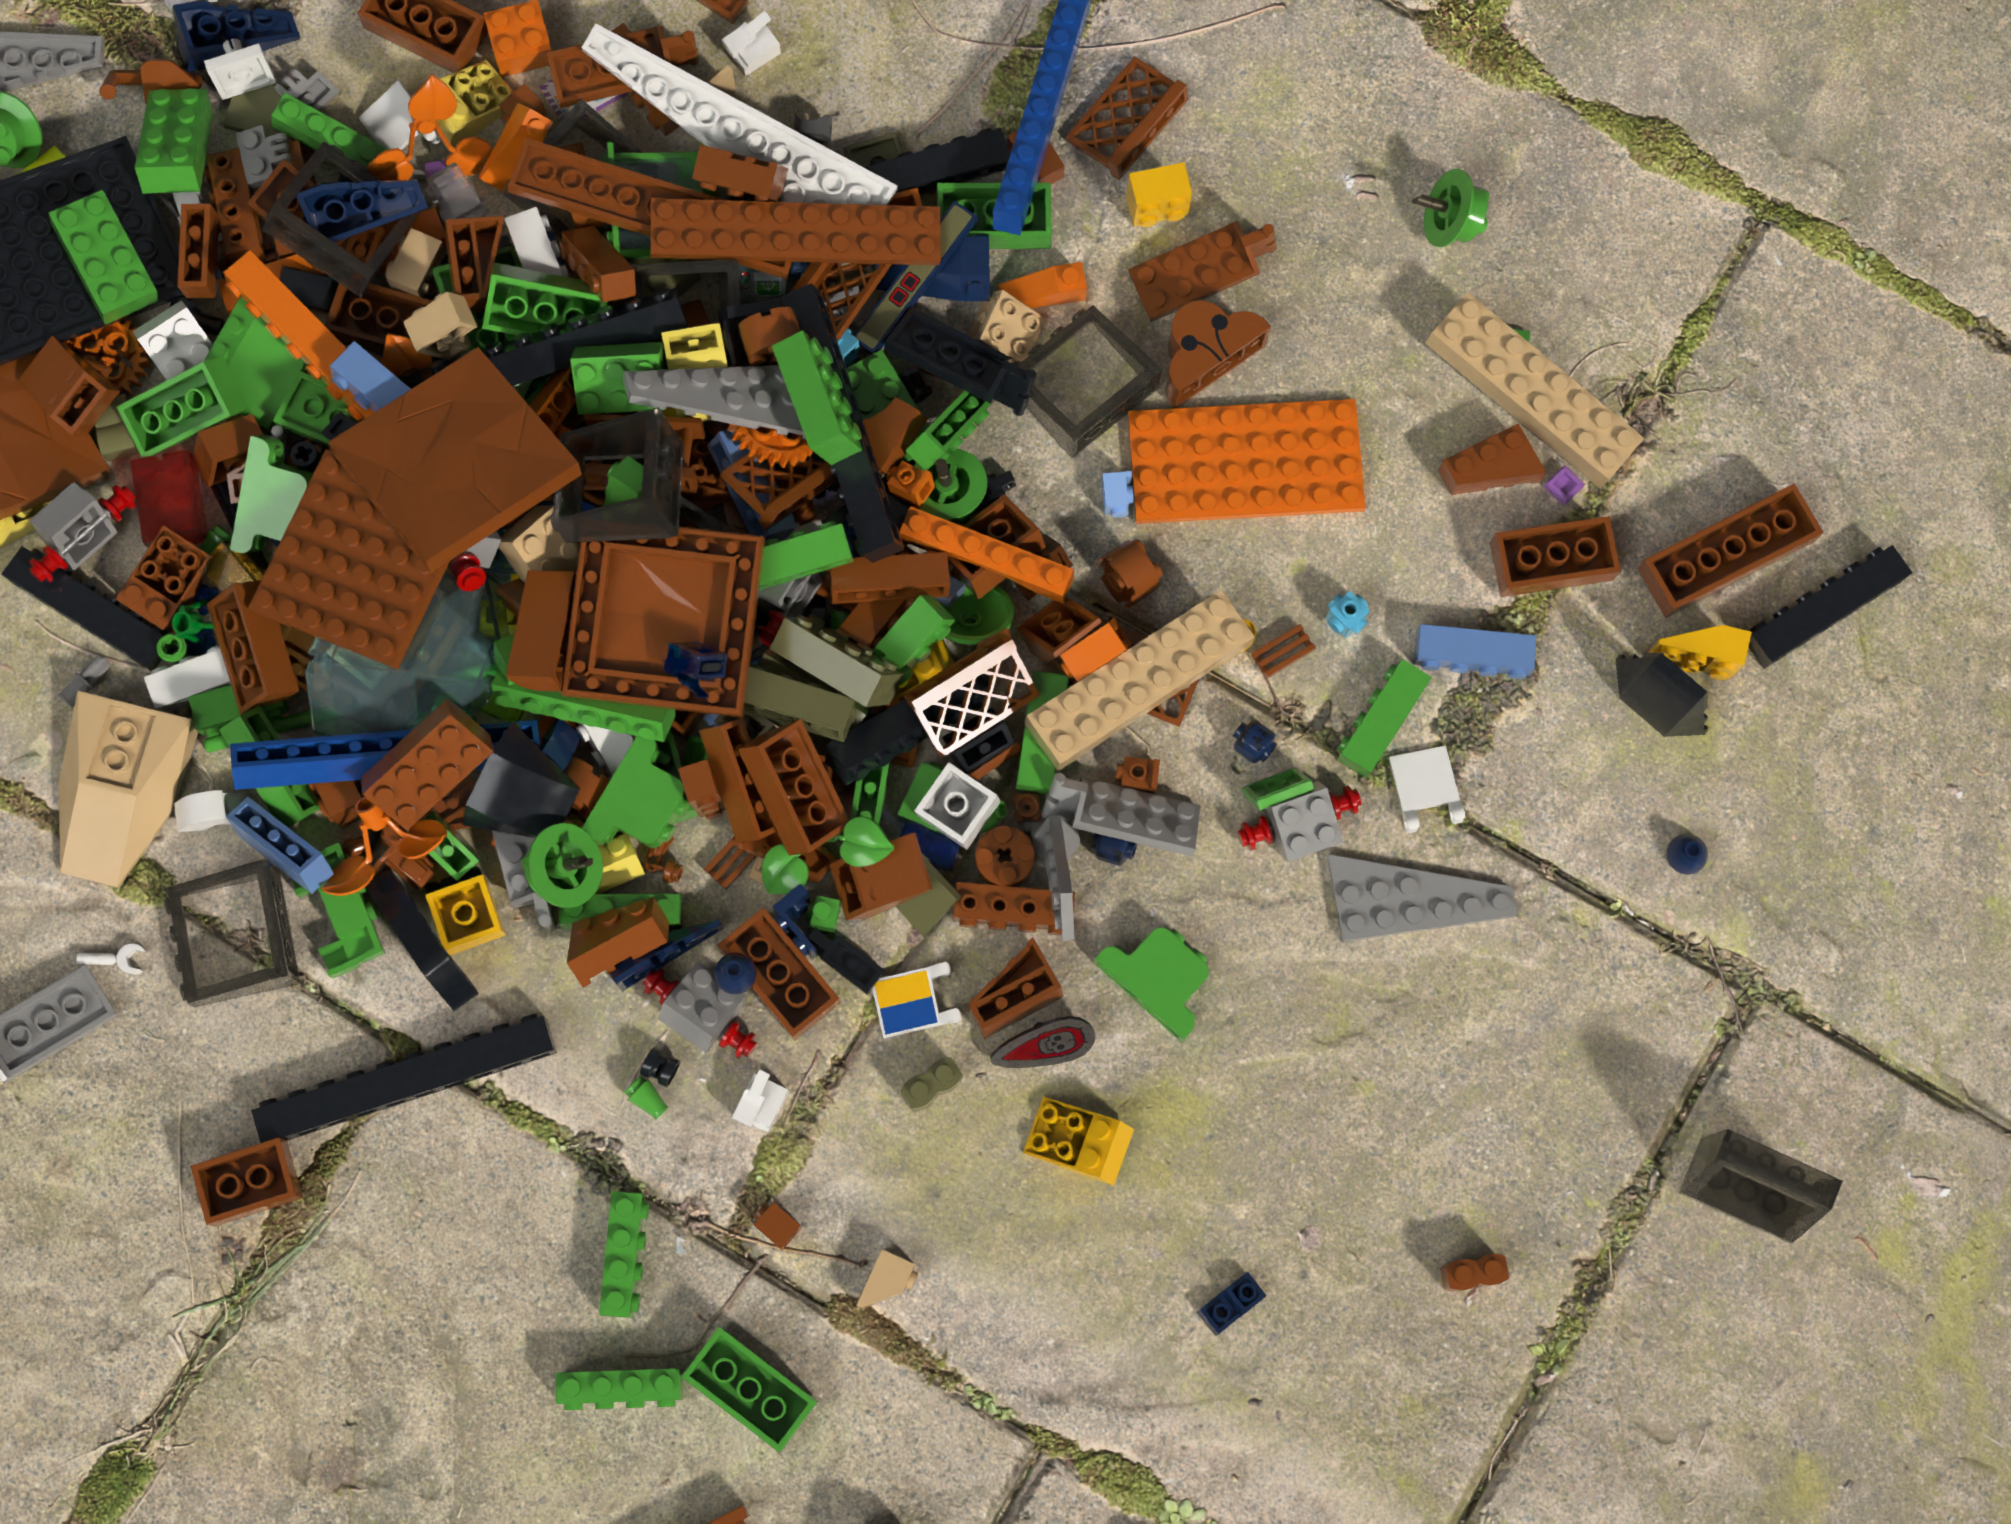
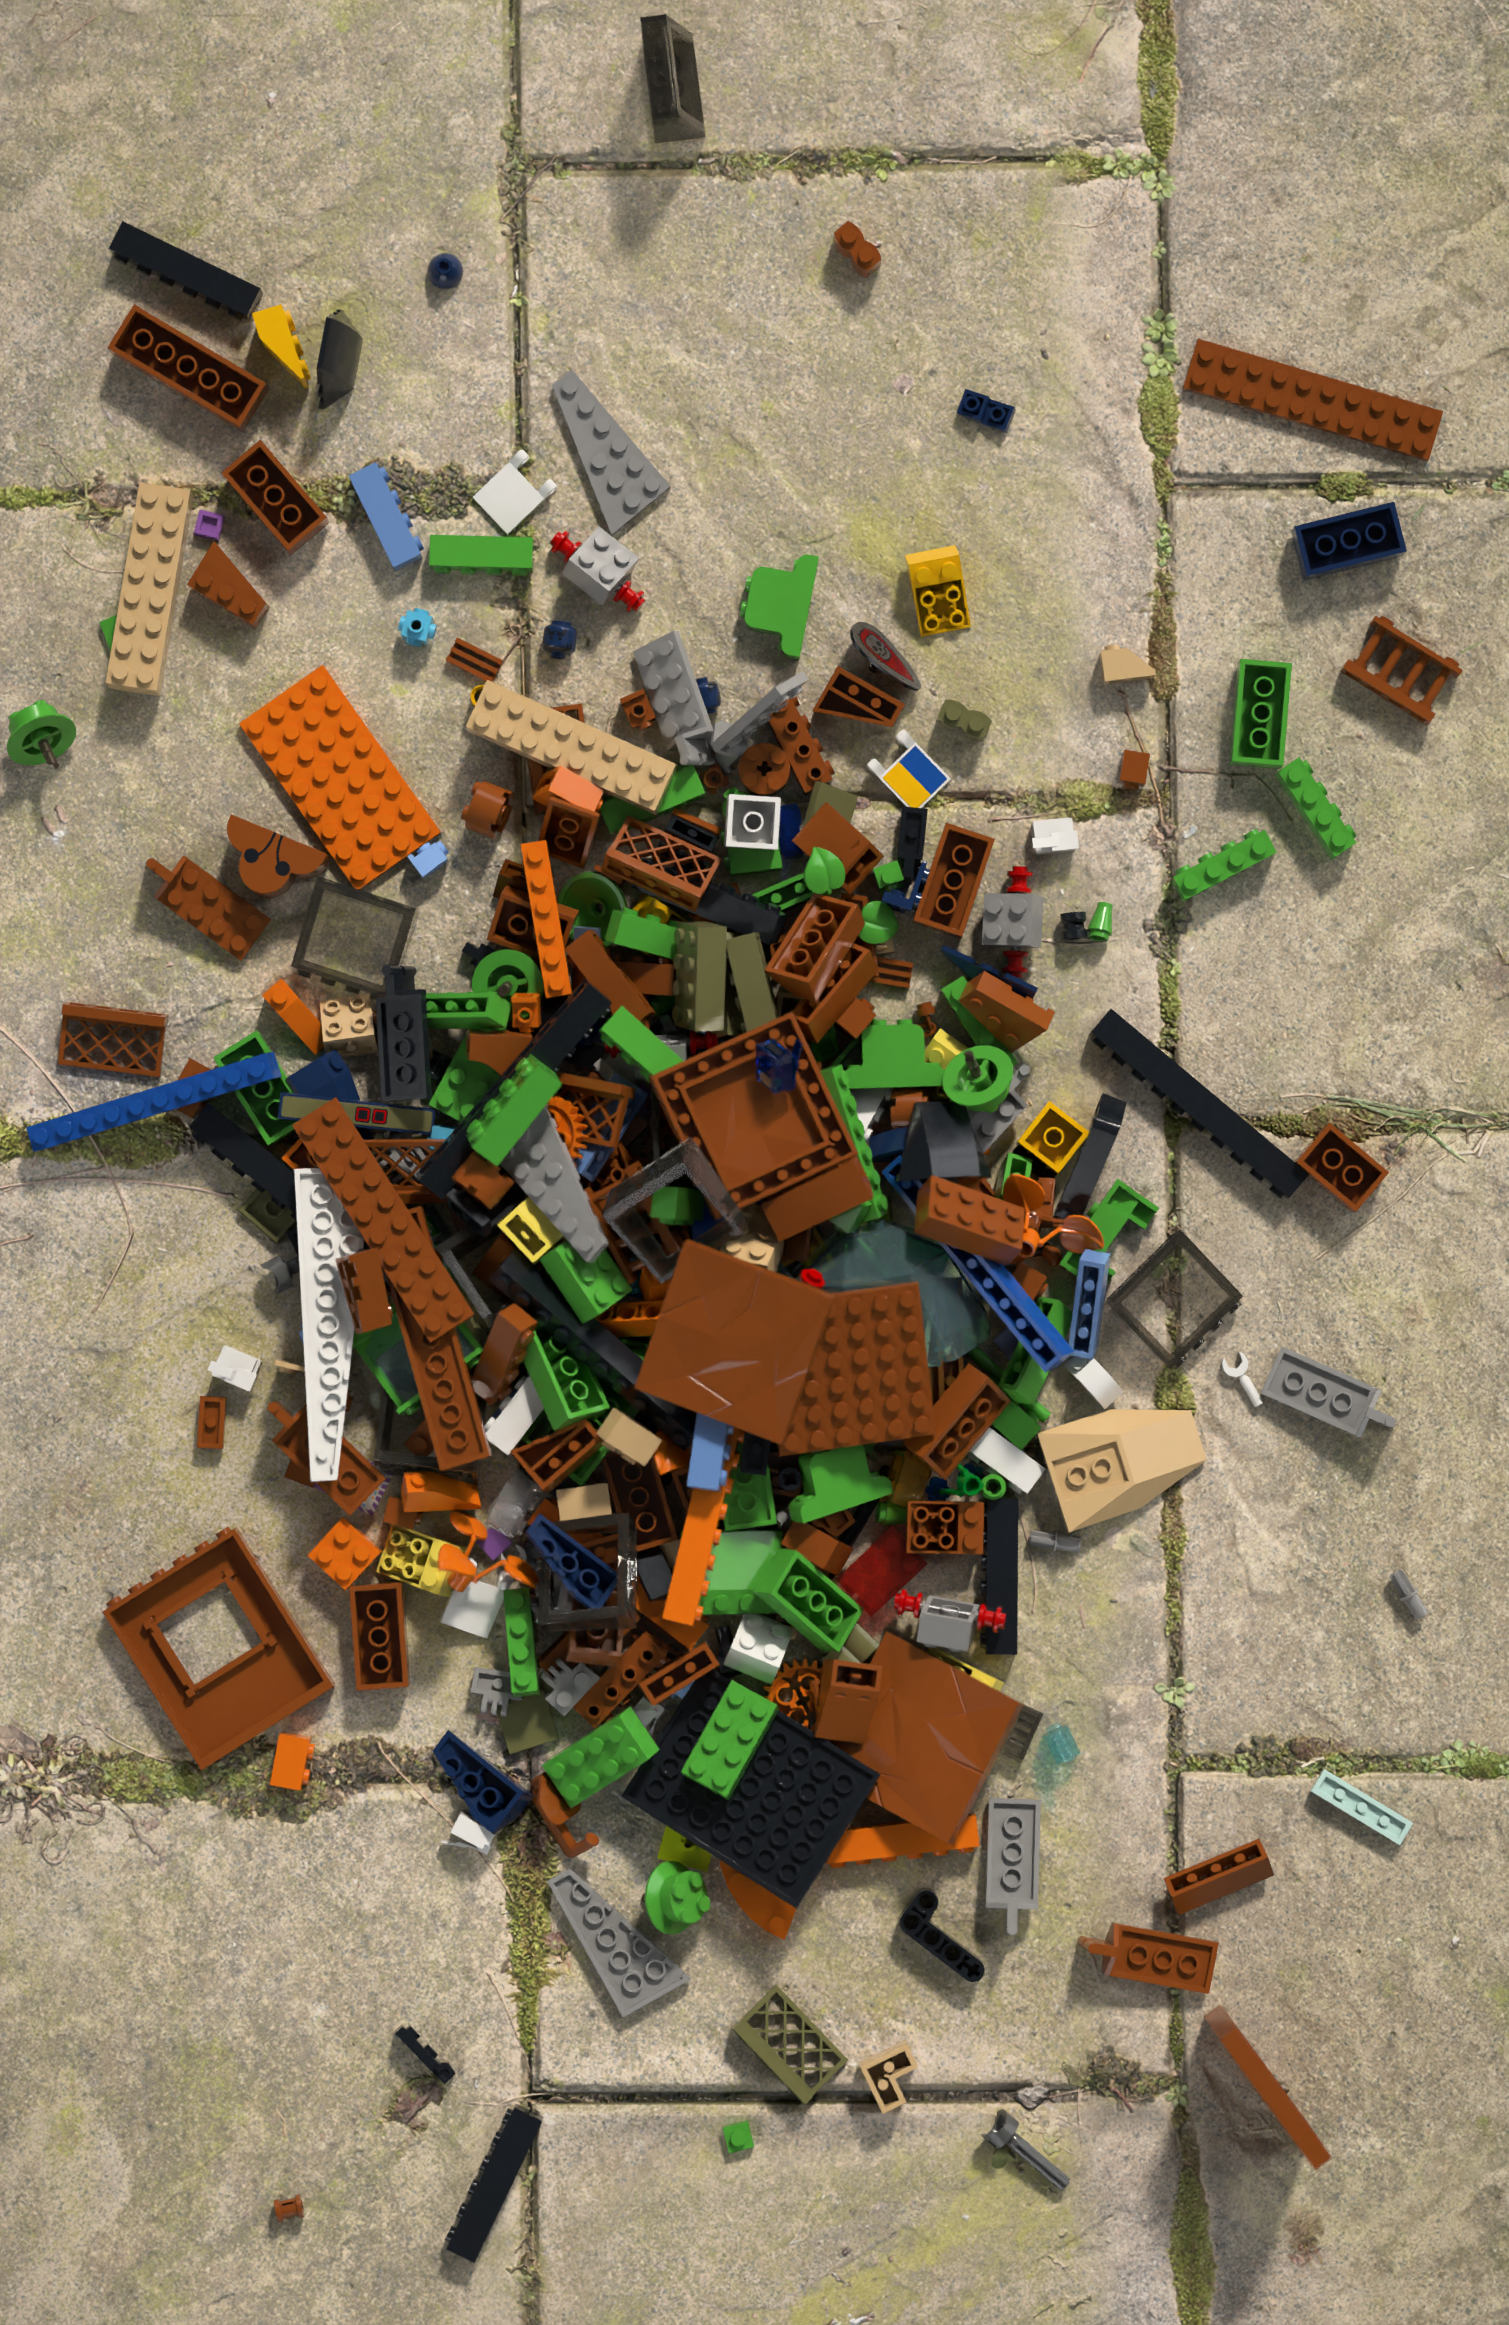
camera: 120 degrees left, 10 degrees up
(239, 70) = (511, 1747): white tile -> none
(735, 973) = (975, 909): dark blue brick -> none
(1158, 194) = (168, 971): yellow brick -> none
(1277, 788) = (587, 599): bright green tile -> none

